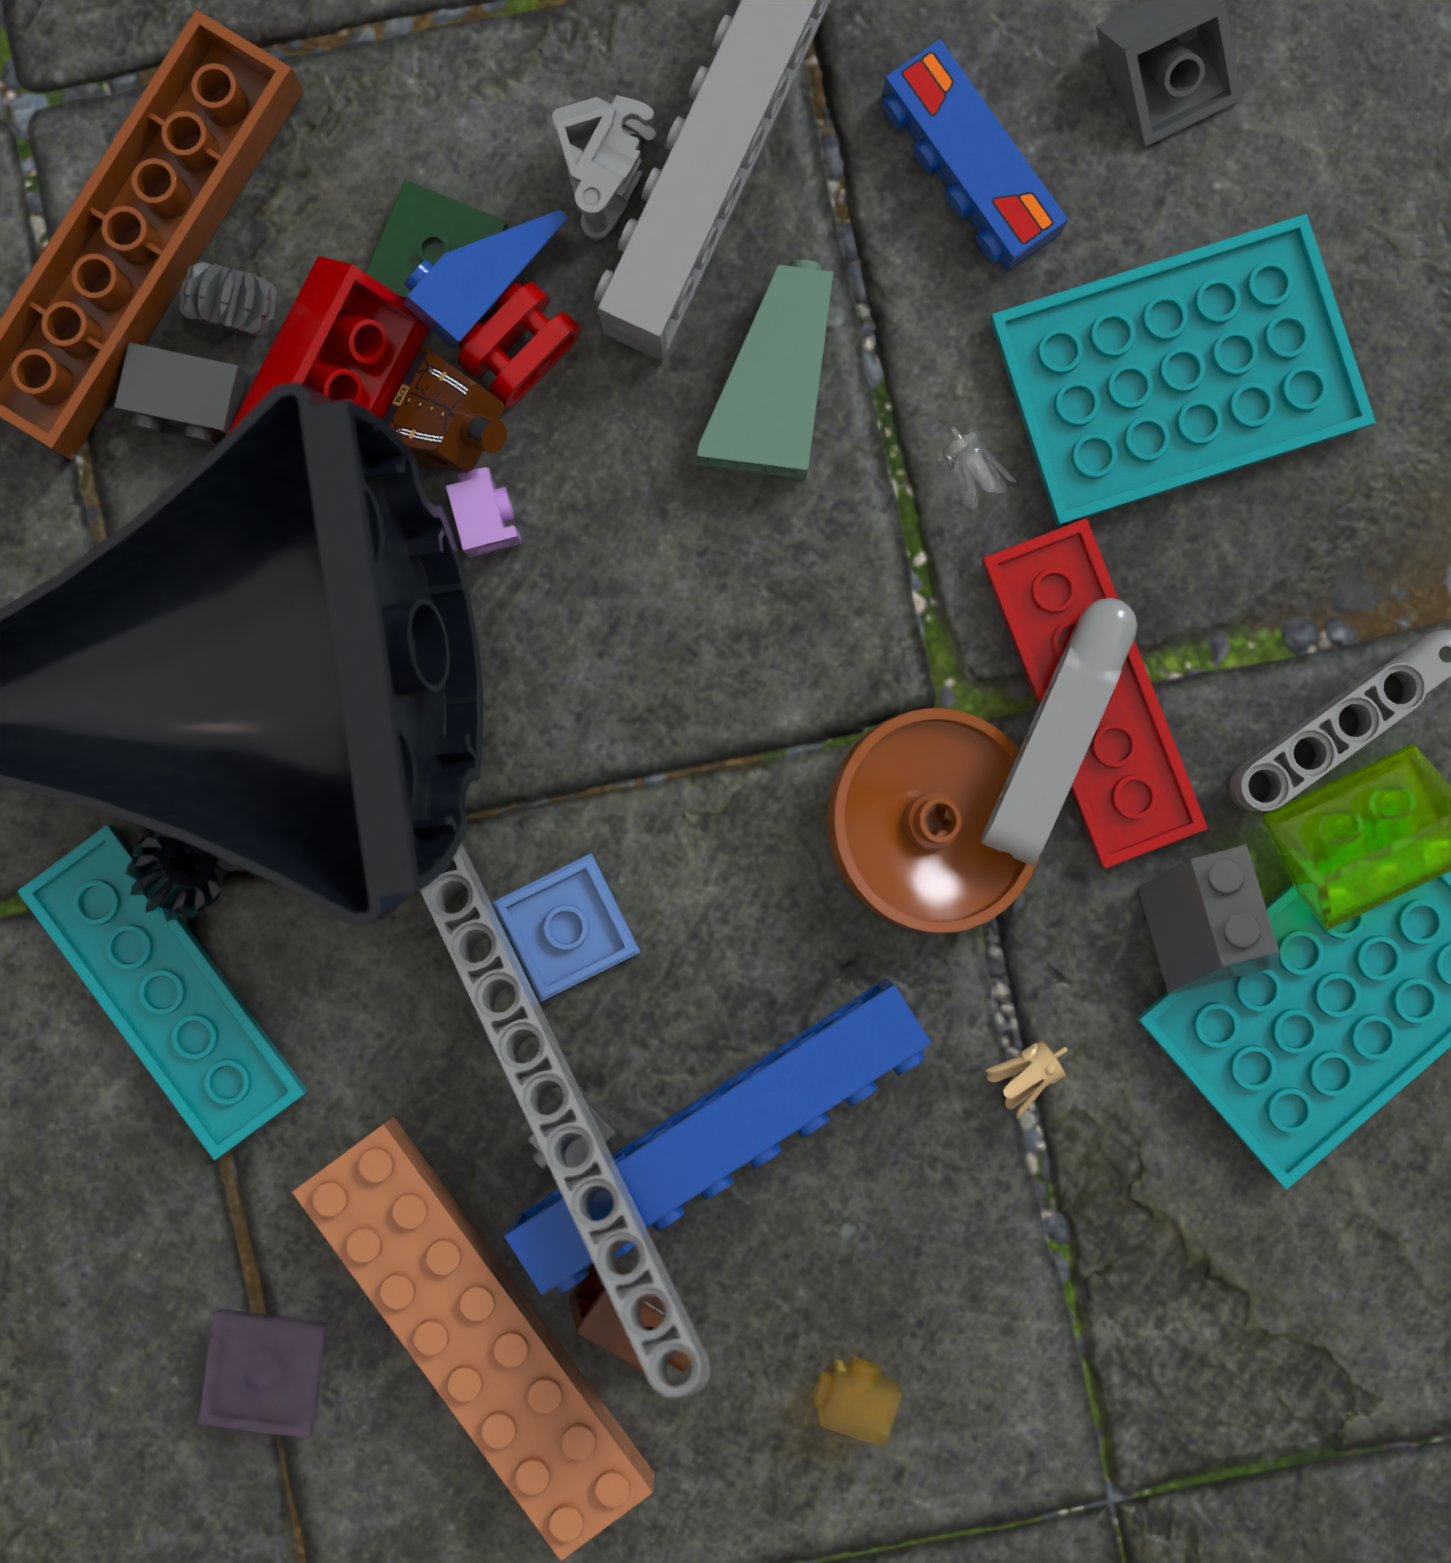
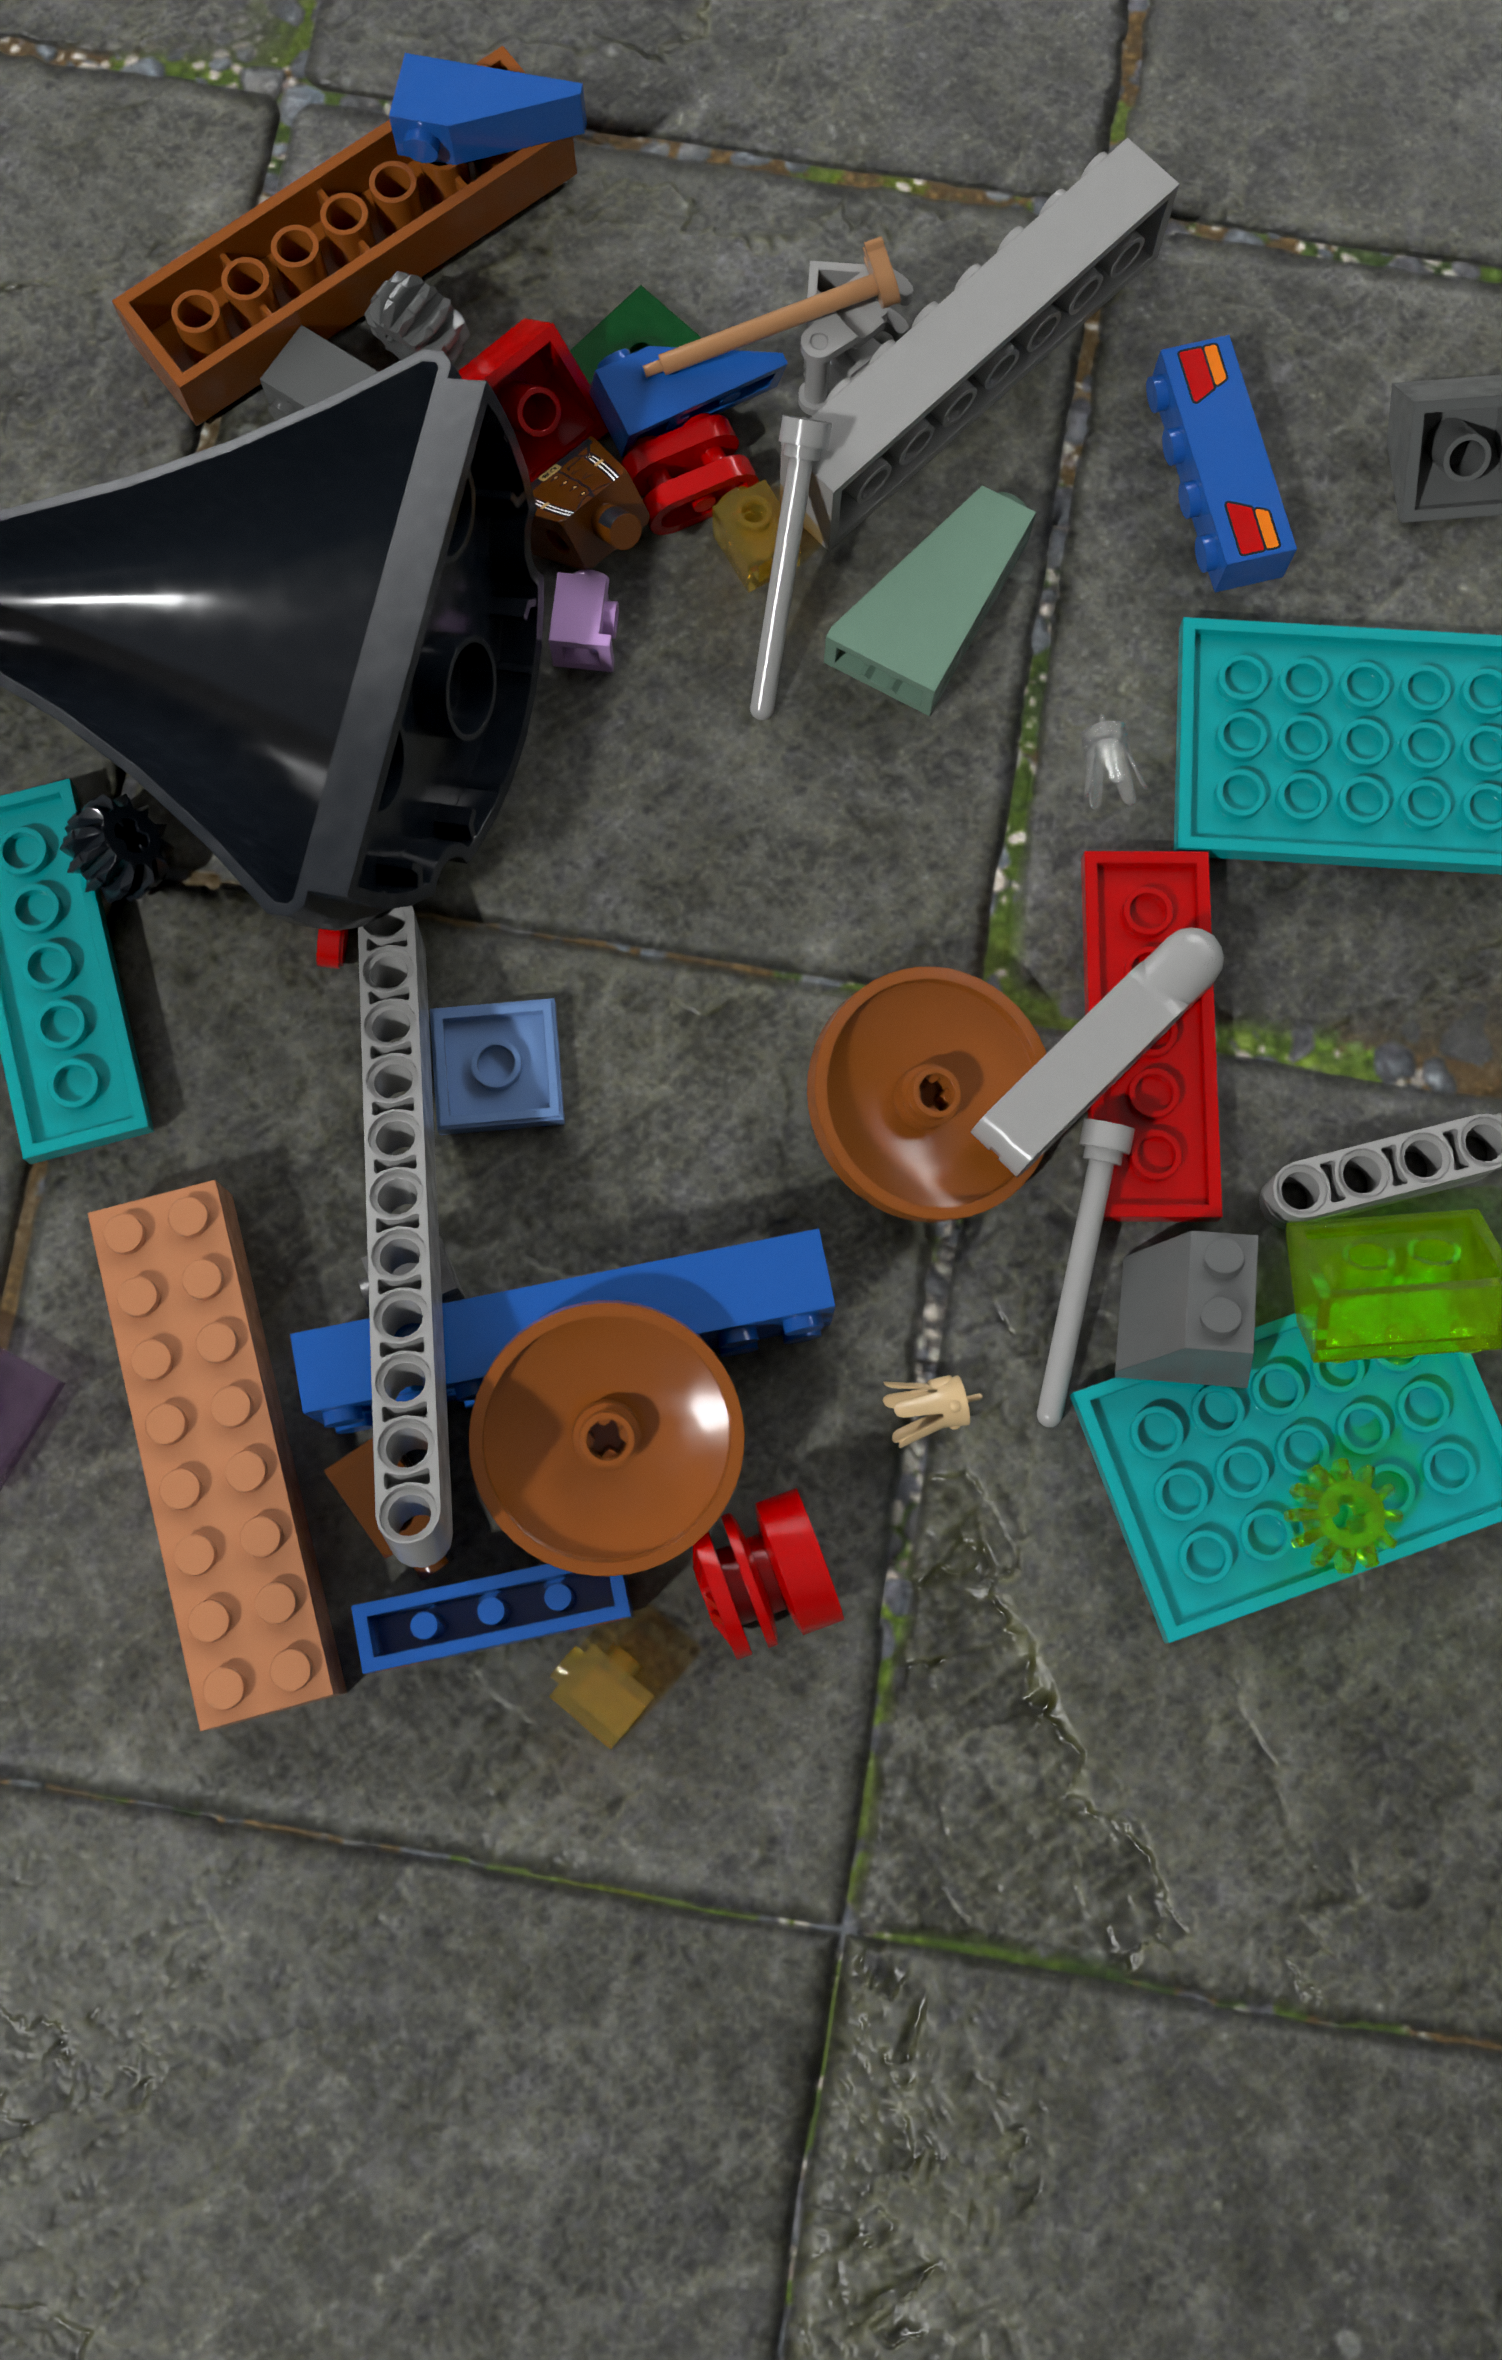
camera: 20 degrees right, 10 degrees down
(199, 94) = (475, 111): none -> blue slope
(597, 377) = (747, 531): none -> clear yellow brick
(619, 304) = (803, 444): none -> light grey piece
(625, 126) = (879, 283): none -> medium nougat piece
(752, 1376) = (484, 1615): none -> blue brick
(791, 1221) = (606, 1438): none -> dark orange dish
(951, 1265) = (766, 1574): none -> red wheel
(1094, 813) = (1104, 1148): none -> light grey piece
(1409, 1036) = (1363, 1529): none -> clear neon green gear

